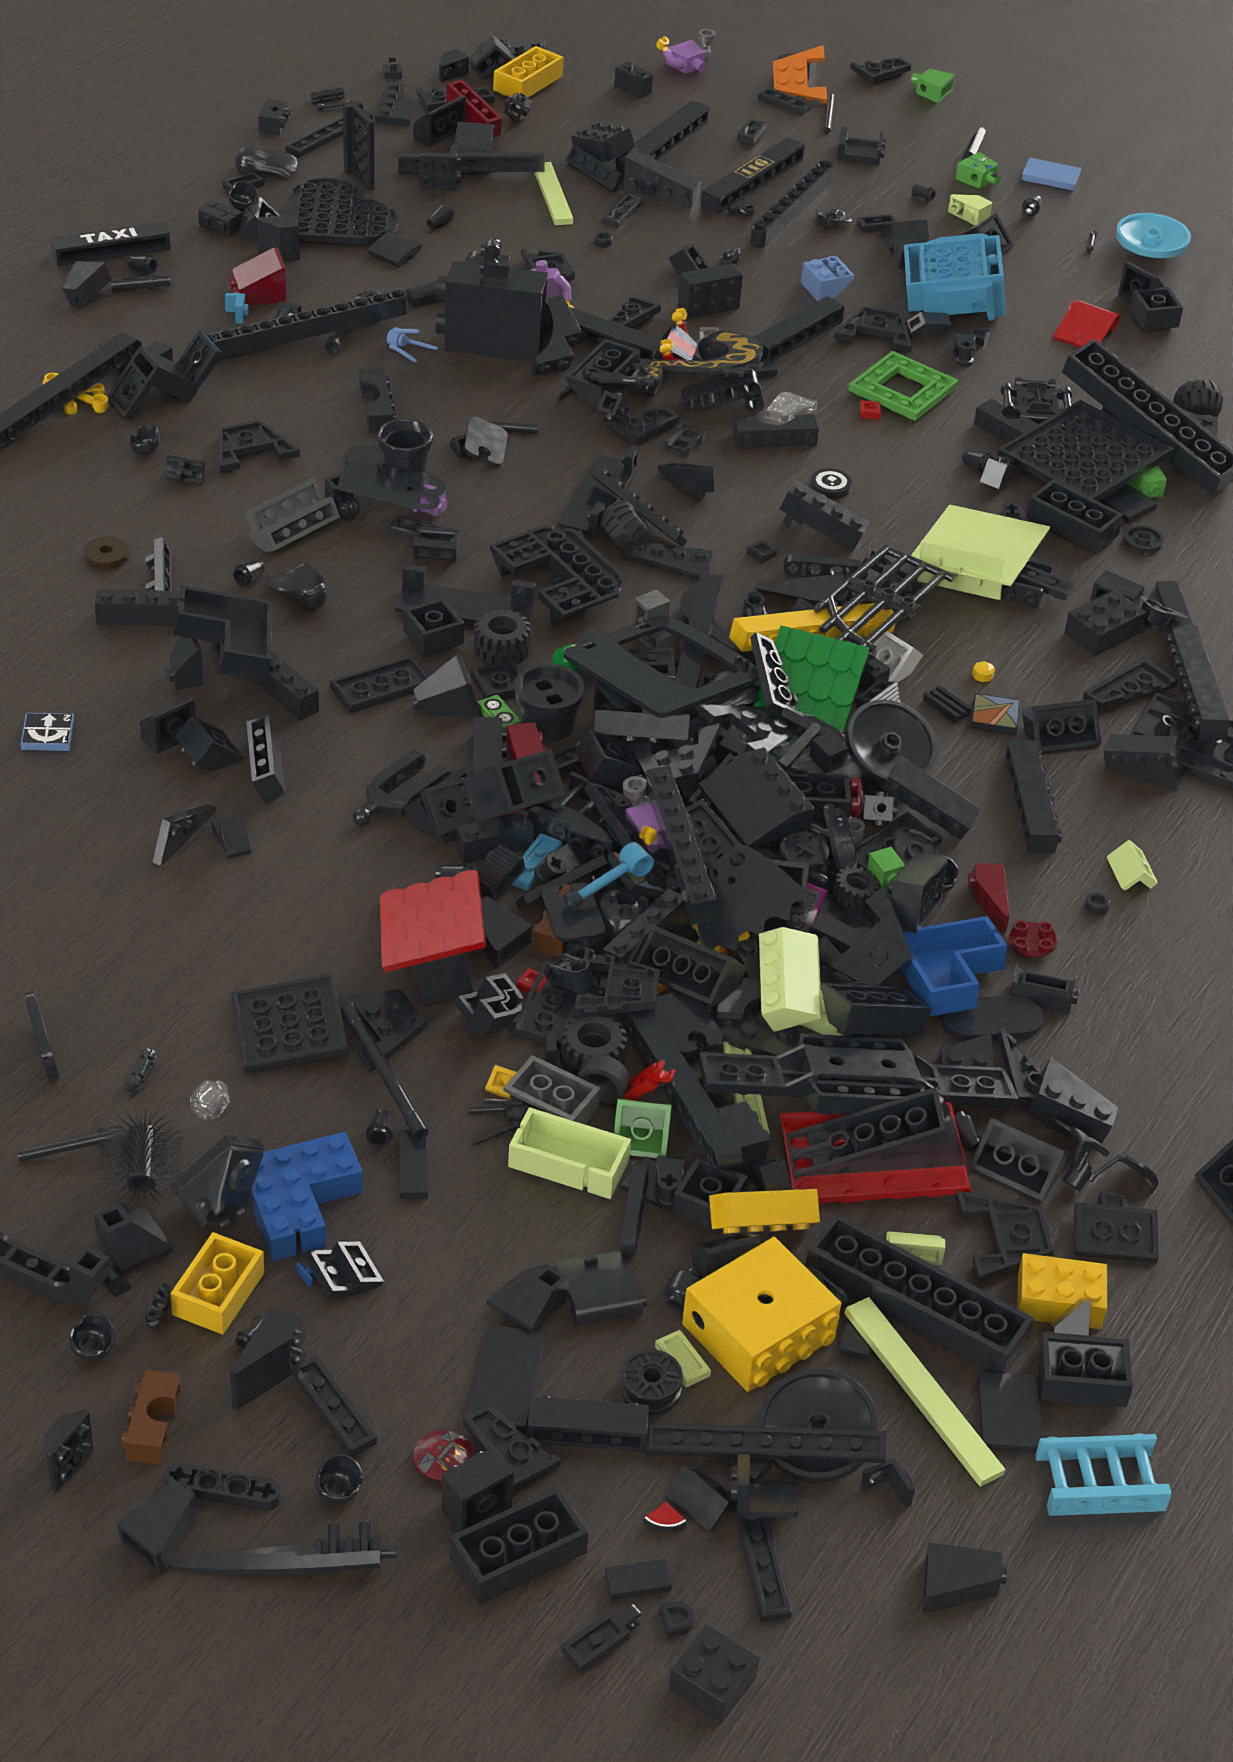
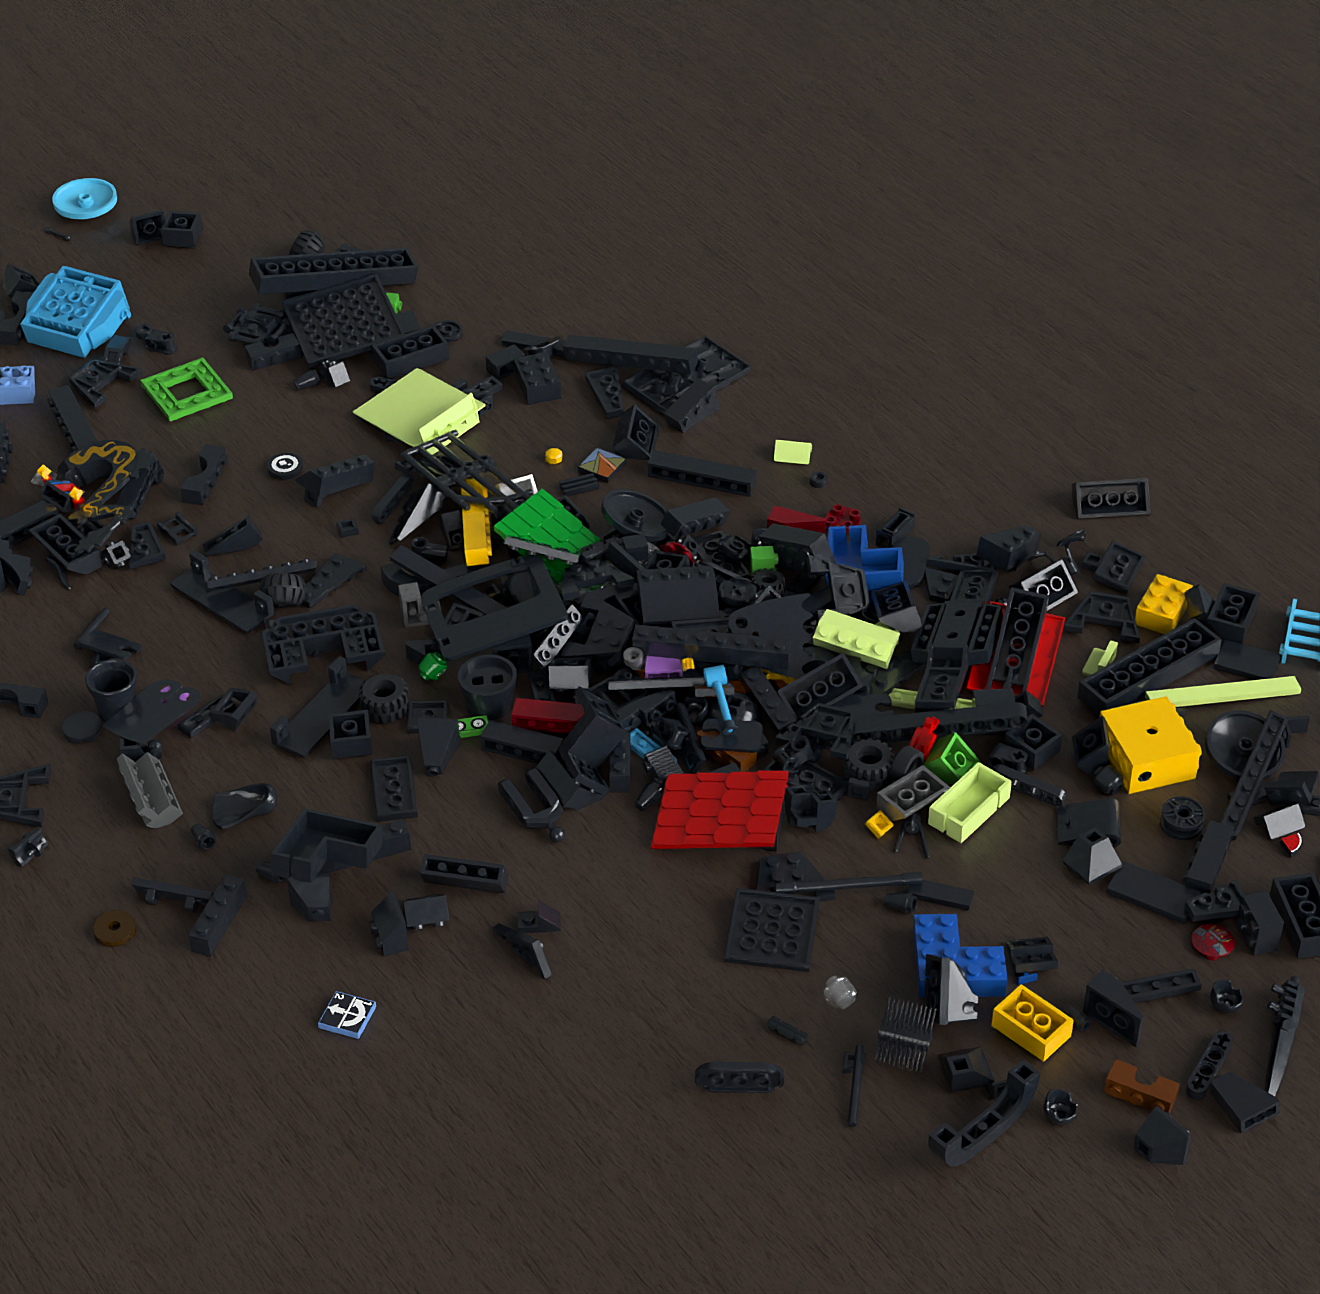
camera: 65 degrees left, 0 degrees up
(158, 1305) = (1046, 1068): black gear -> none
(678, 1346) = (1154, 800): yellowish green tile -> none
(764, 1209) = (1064, 714): yellow brick -> none
(788, 405) = (171, 459): clear wing -> none
(870, 410) = (203, 417): red tile -> none
(1085, 323) = (173, 272): red door -> none

